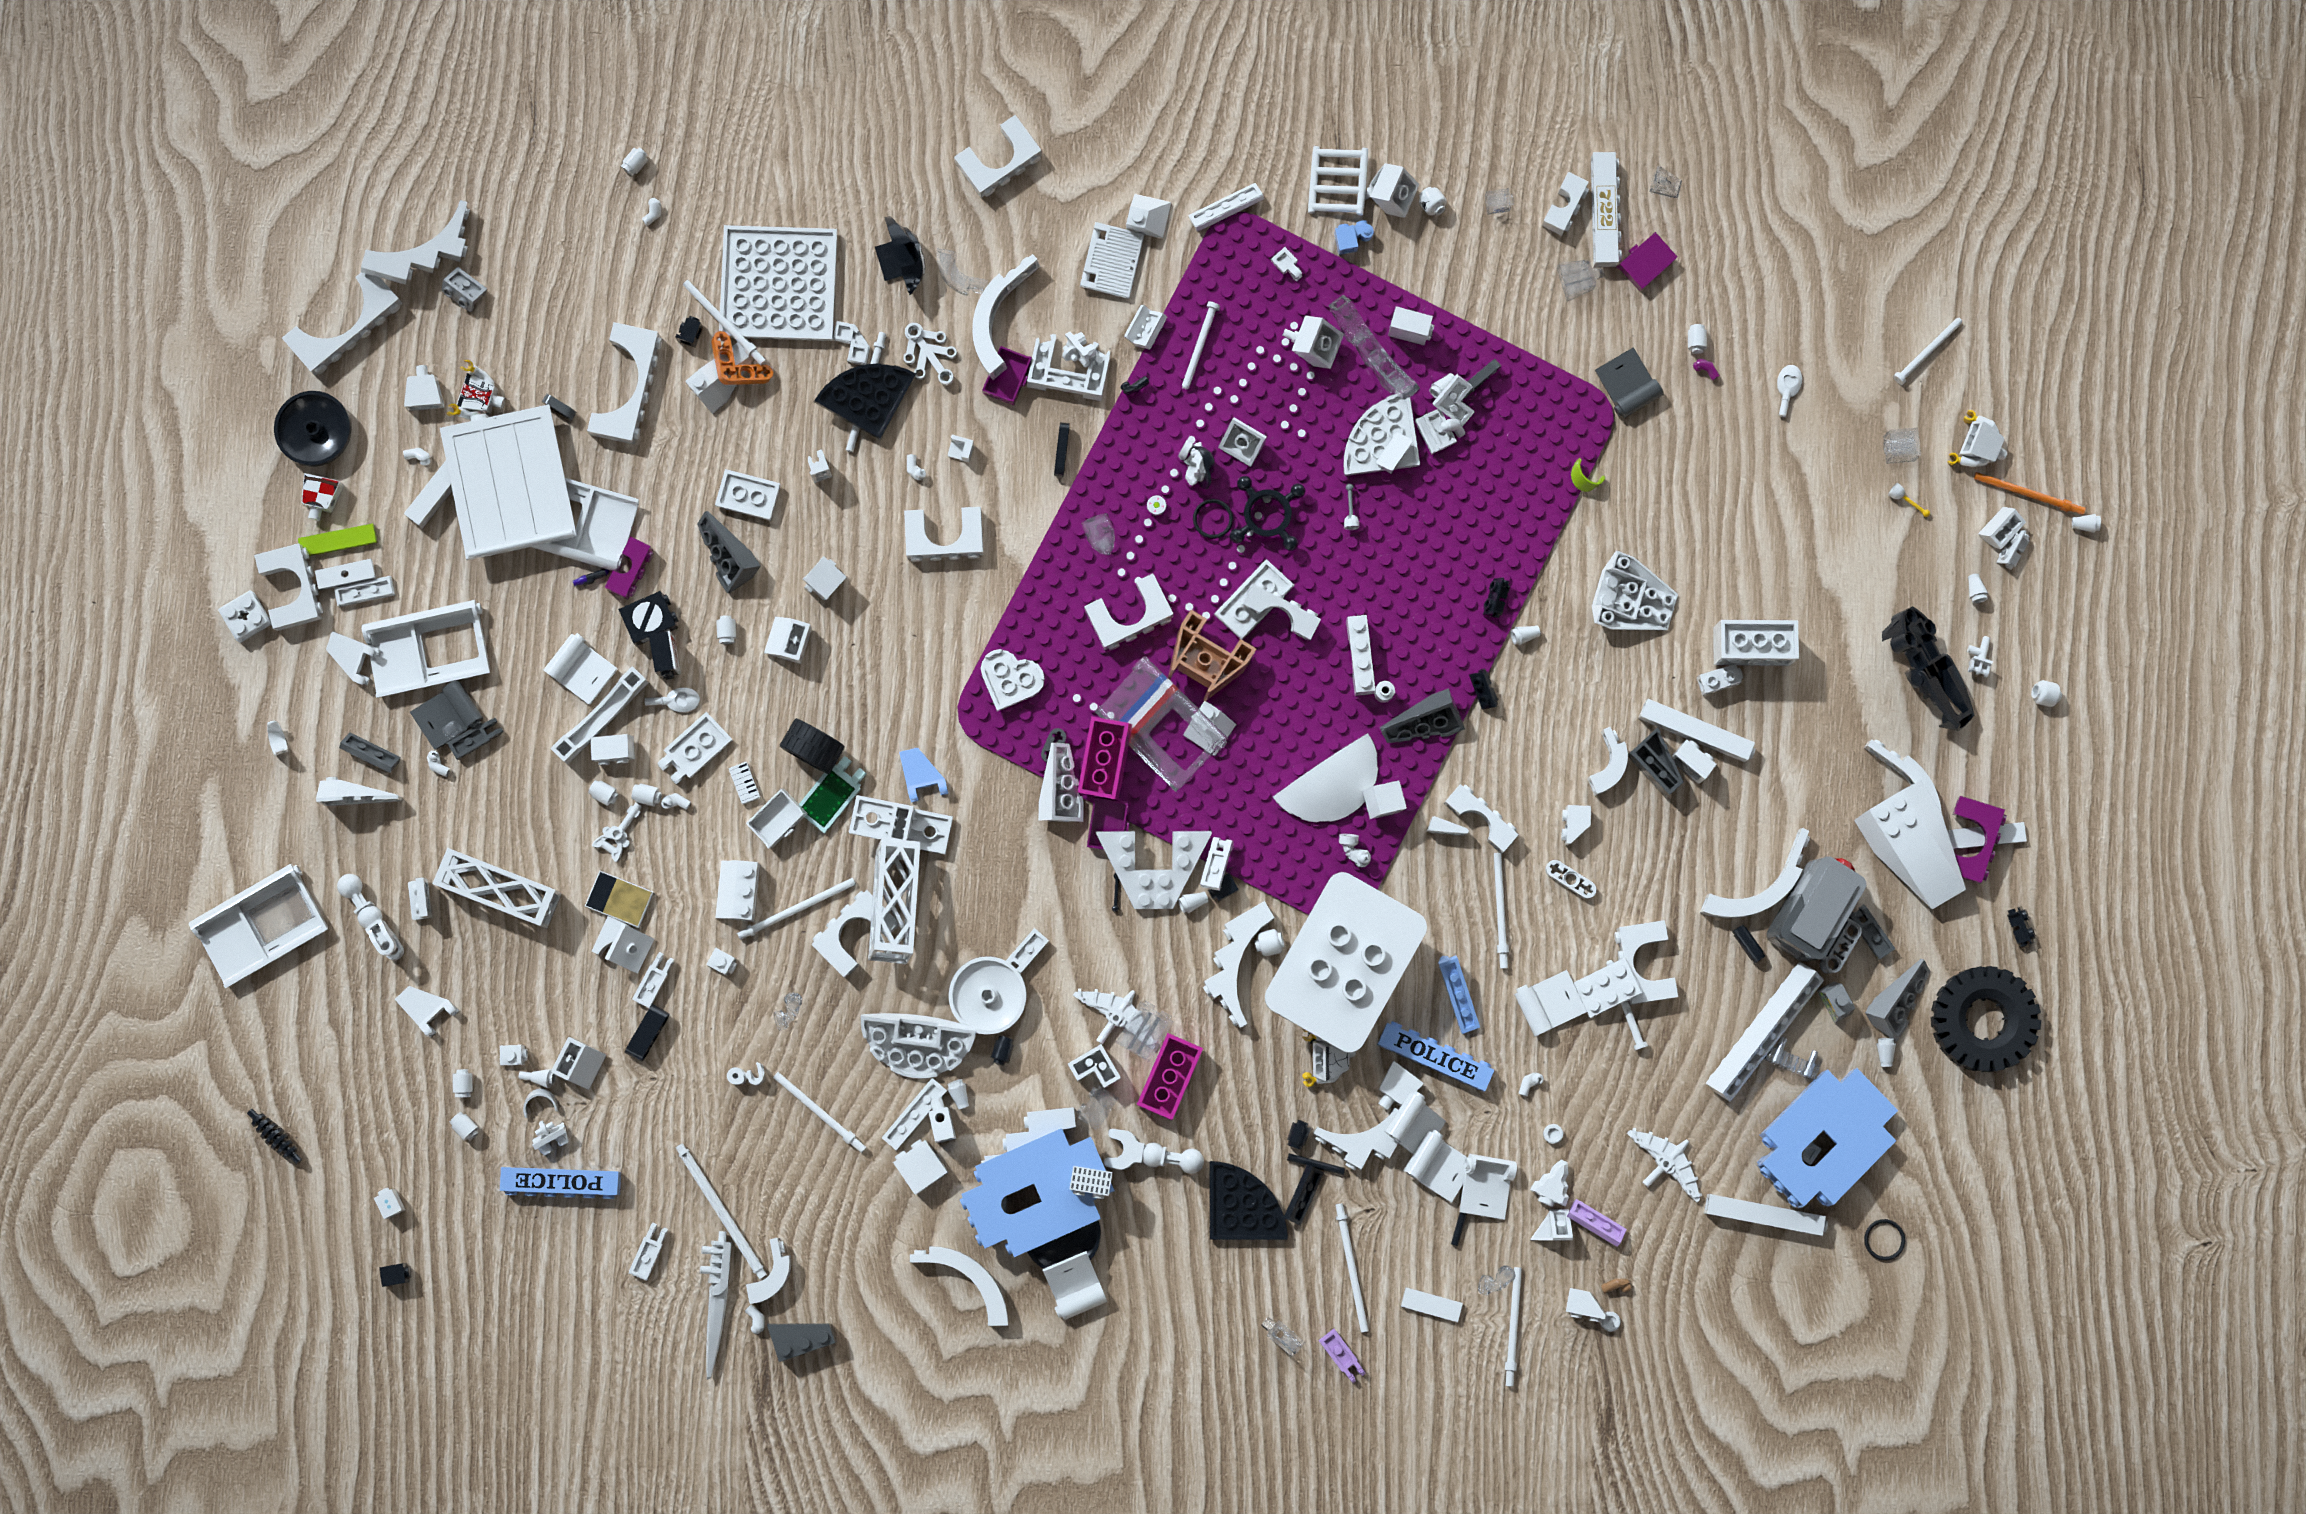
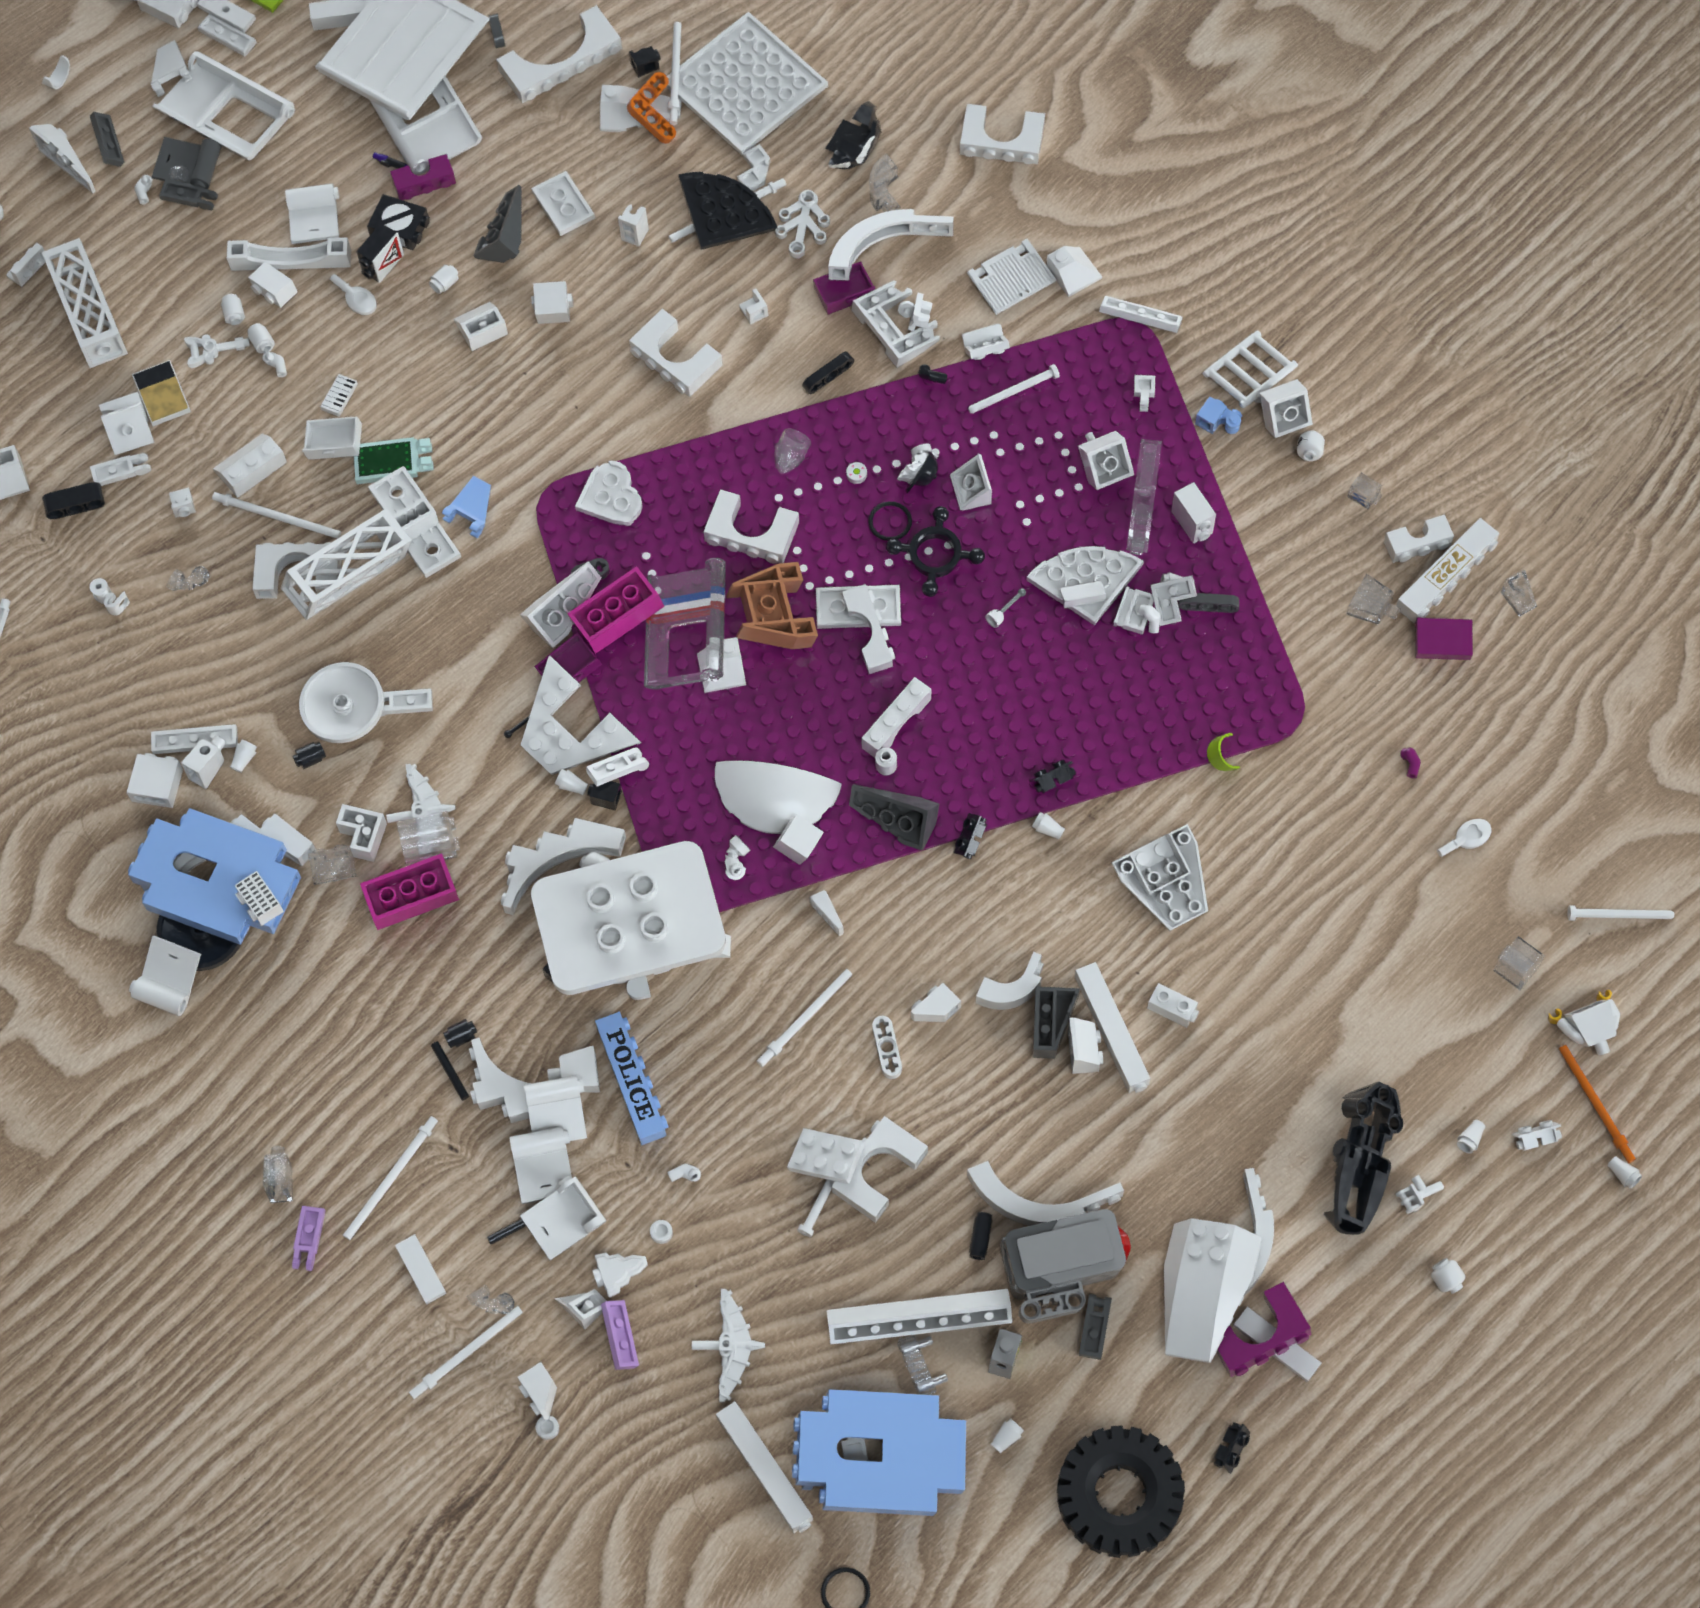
camera: 50 degrees right, 15 degrees down
(695, 748) = (330, 339): white tile -> none
(812, 746) = (411, 405): black tyre -> none
(847, 1136) = (129, 709): white bar -> none
(913, 470) = (703, 291): white arm -> none
(916, 1043) = (251, 688): white brick -> none
(976, 1272) = (106, 909): white arch -> none
(1151, 1155) = (332, 937): white piece -> none
(1242, 1206) = (358, 1045): black plate -> none
(1303, 1195) = (413, 1082): black plate -> none
(1327, 1062) = (541, 998): white torso -> none
(1458, 993) = (699, 1045): light blue piece -> none
(1500, 833) = (865, 955): white arch -> none
(1550, 1003) = (765, 1124): white door -> none
(1616, 1283) = (584, 1400): medium nougat arm -> none
(1629, 384) = (1333, 715): dark grey door -> none
(1697, 338) = (1426, 731): white brick -> none
(1756, 642) = (1230, 998): white brick -> none
(1892, 1006) = (1055, 1404): light grey wedge -> none
(1898, 492) = (1479, 999): hinge -> none
(2002, 527) = (1544, 1108): white brick -> none

